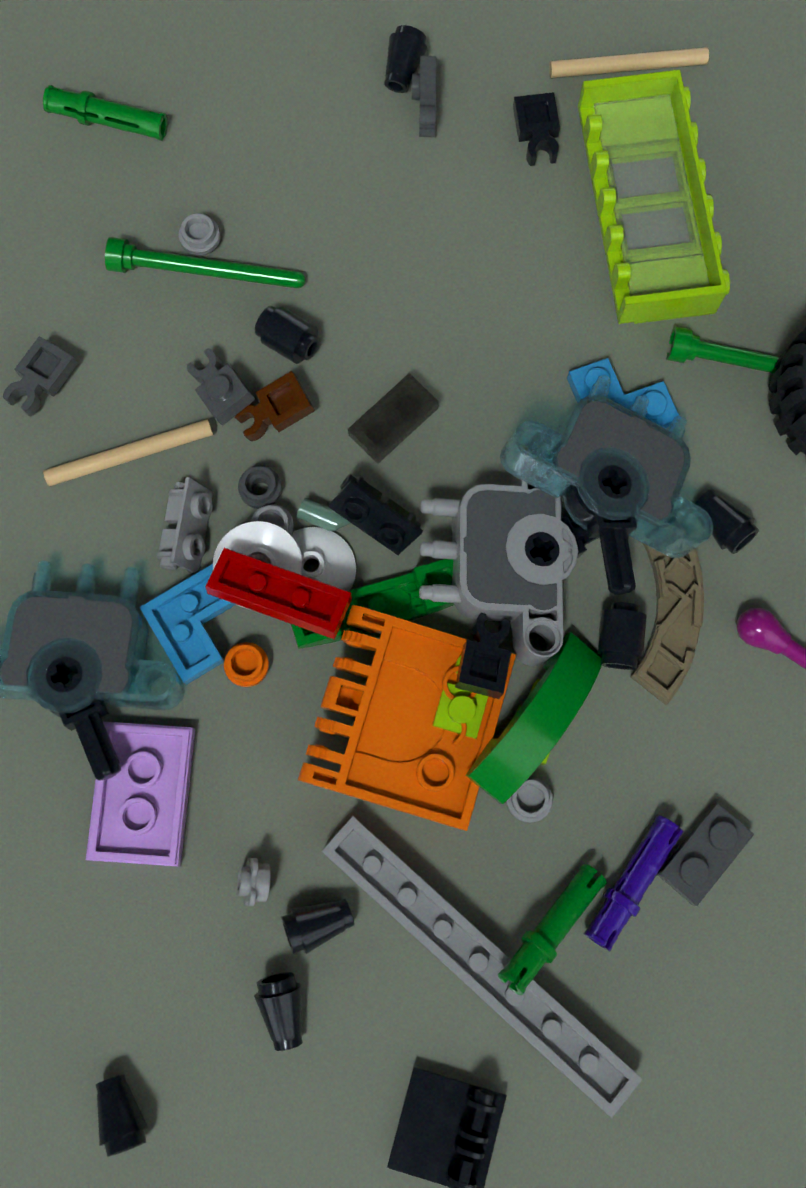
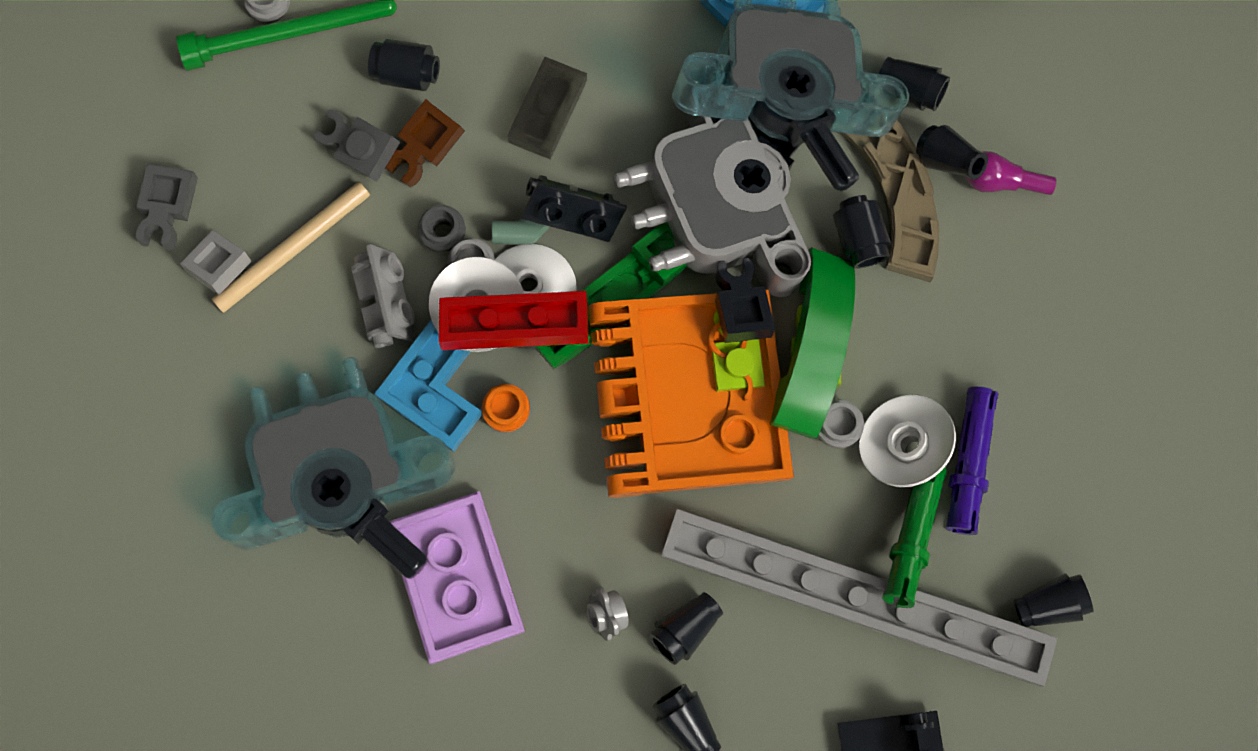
camera: 25 degrees left, 0 degrees up
(59, 441) = (215, 262): none -> light grey plate
(578, 822) = (897, 425): none -> white dish
(654, 1044) = (1055, 602): none -> black cone
(705, 854) = (1027, 407): dark grey plate -> none
(729, 596) = (949, 152): none -> black cone

